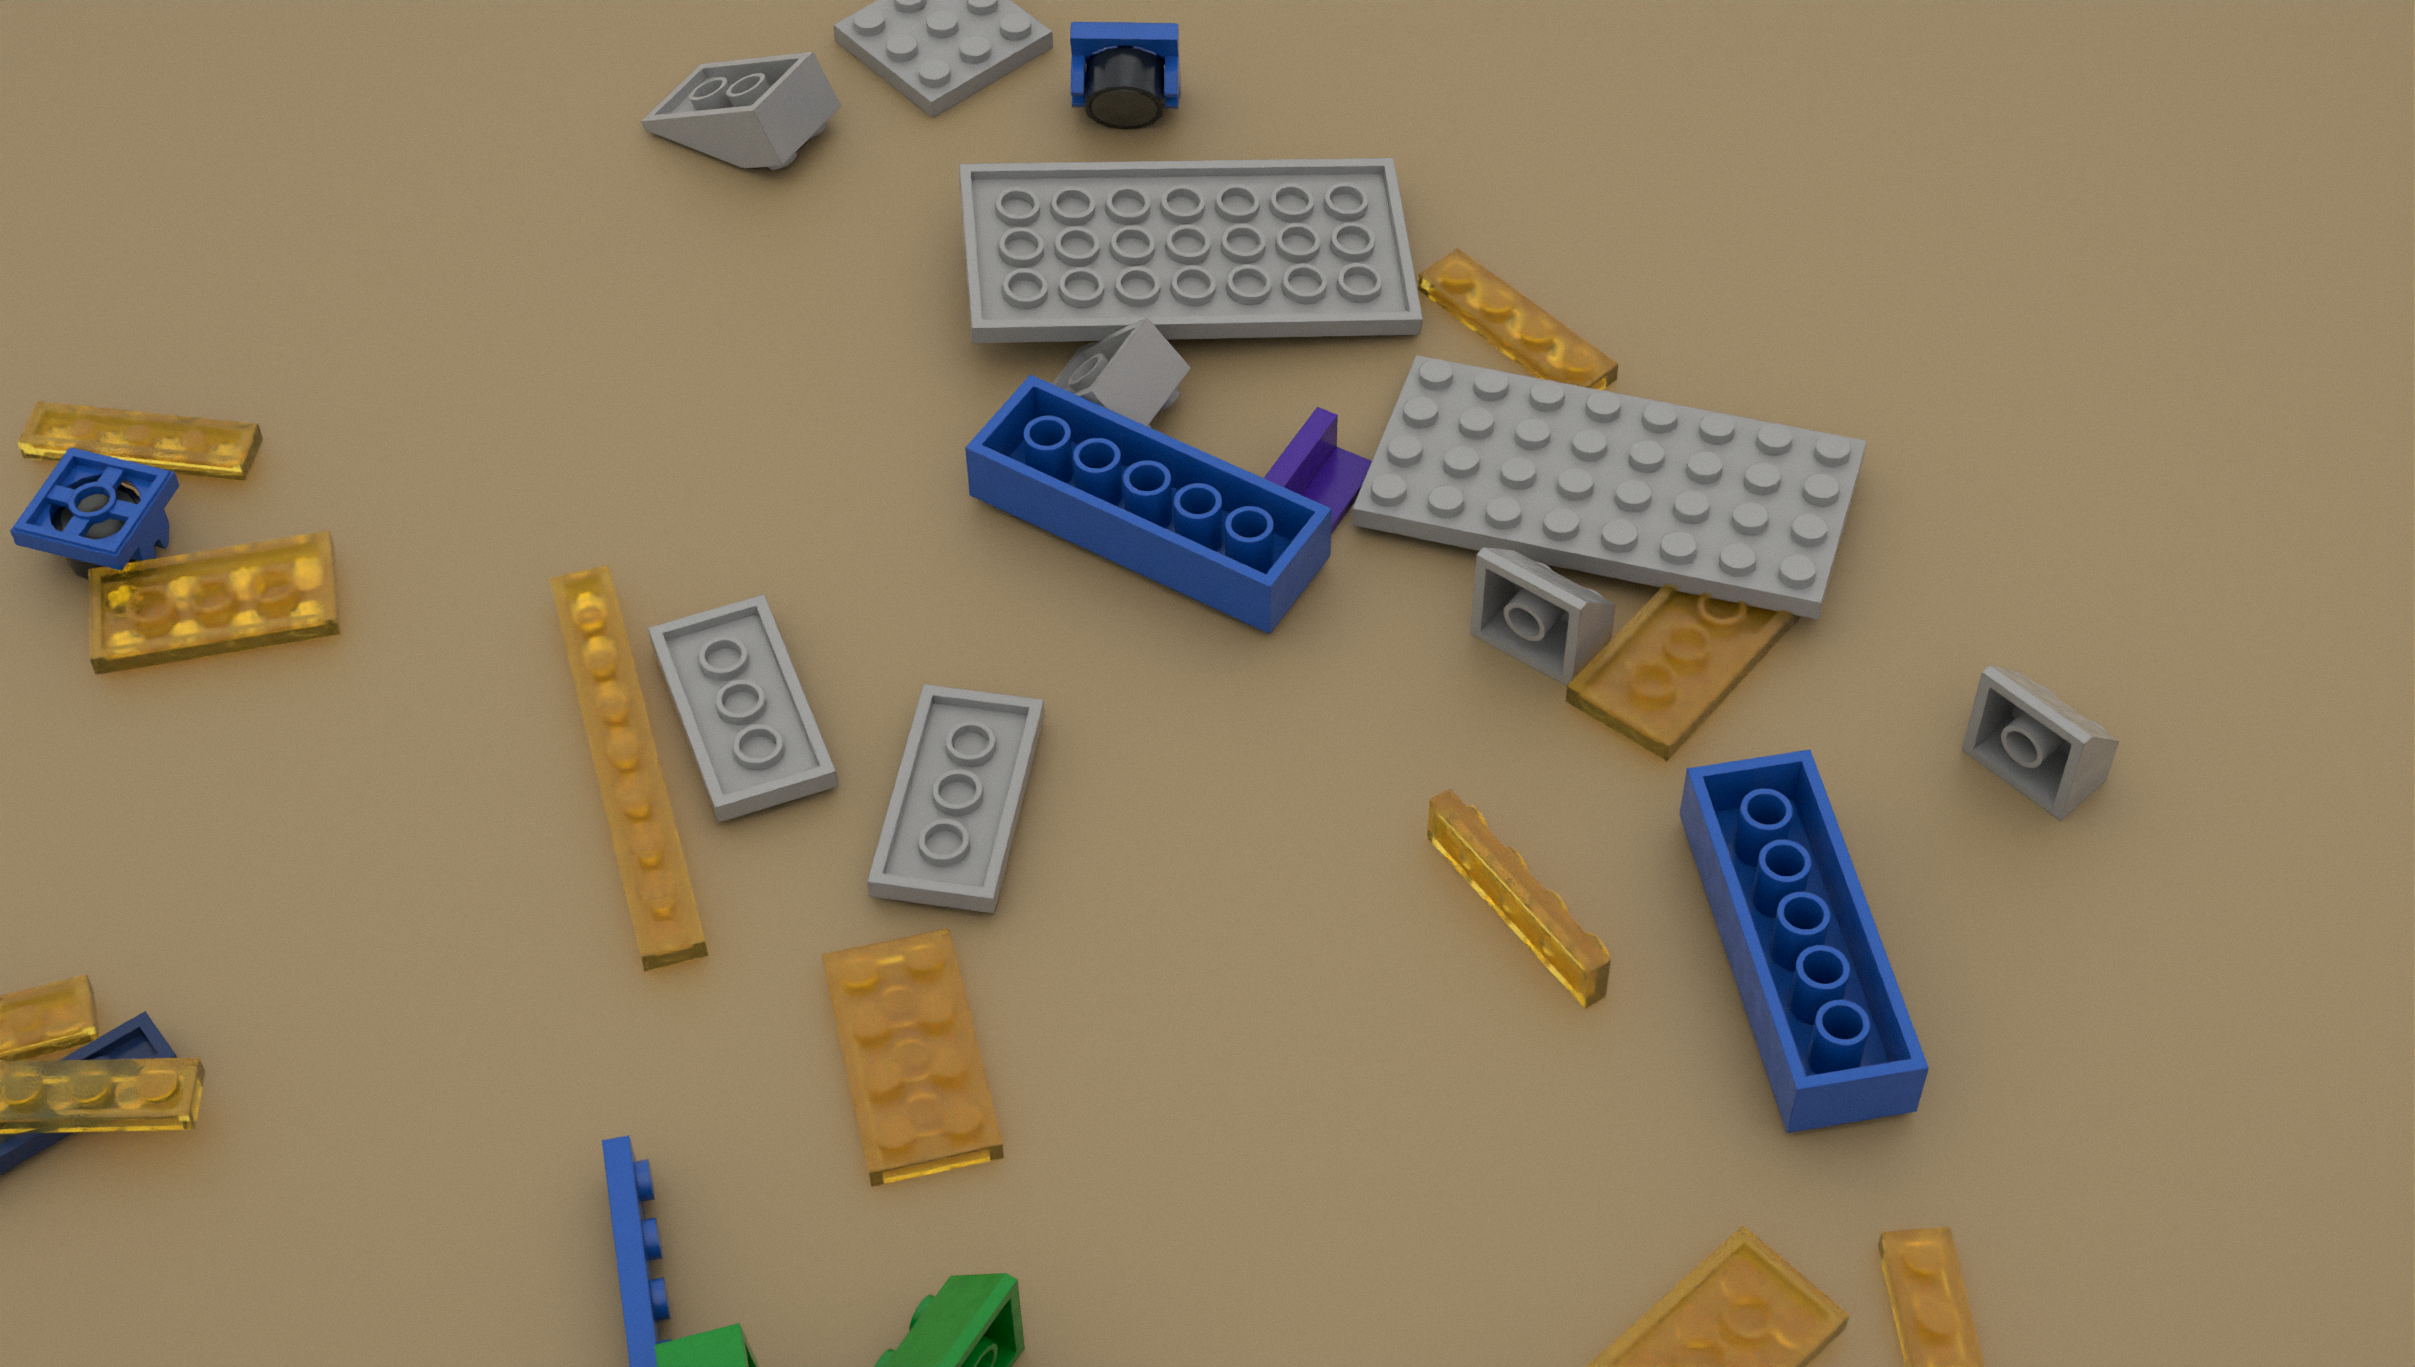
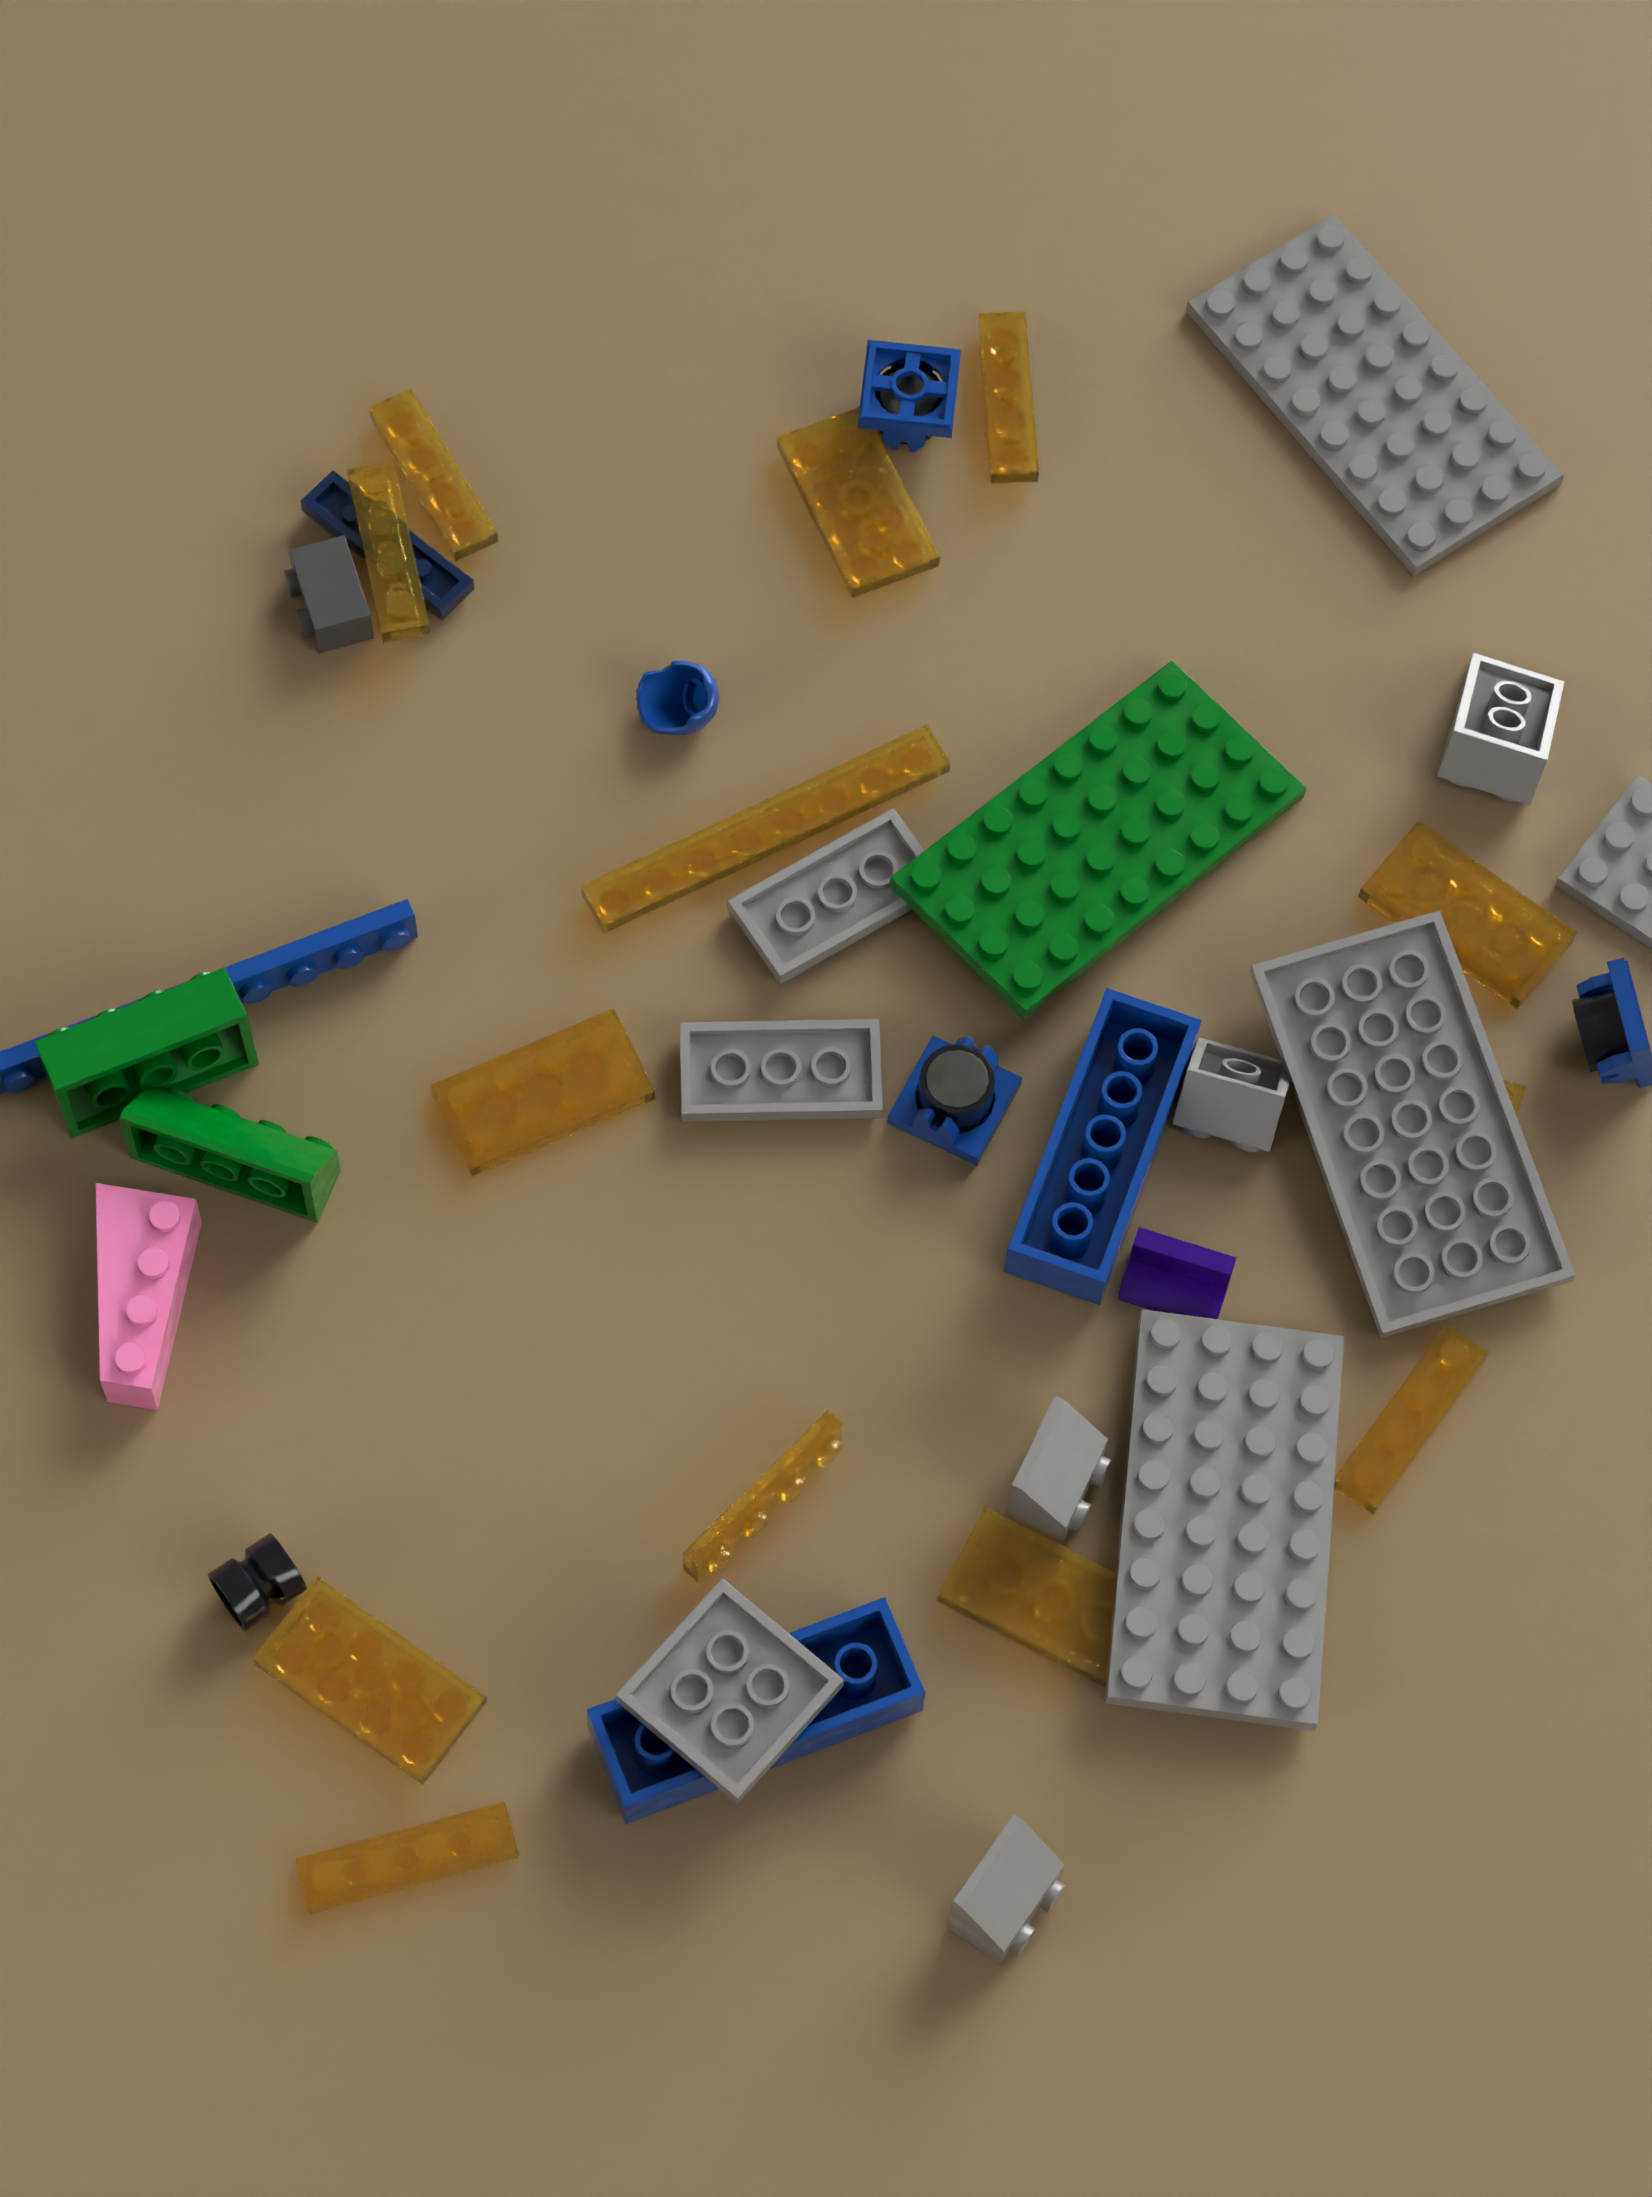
camera: 75 degrees right, 15 degrees up
(90, 1184) = (330, 594): none -> dark grey brick
(284, 146) = (1374, 394): none -> light grey plate
(416, 812) = (677, 698): none -> blue hair
(756, 460) = (1097, 839): none -> green plate
(917, 193) = (1493, 927): none -> clear yellow plate
(1040, 626) = (955, 1094): none -> piece
(1799, 924) = (729, 1690): none -> light grey plate

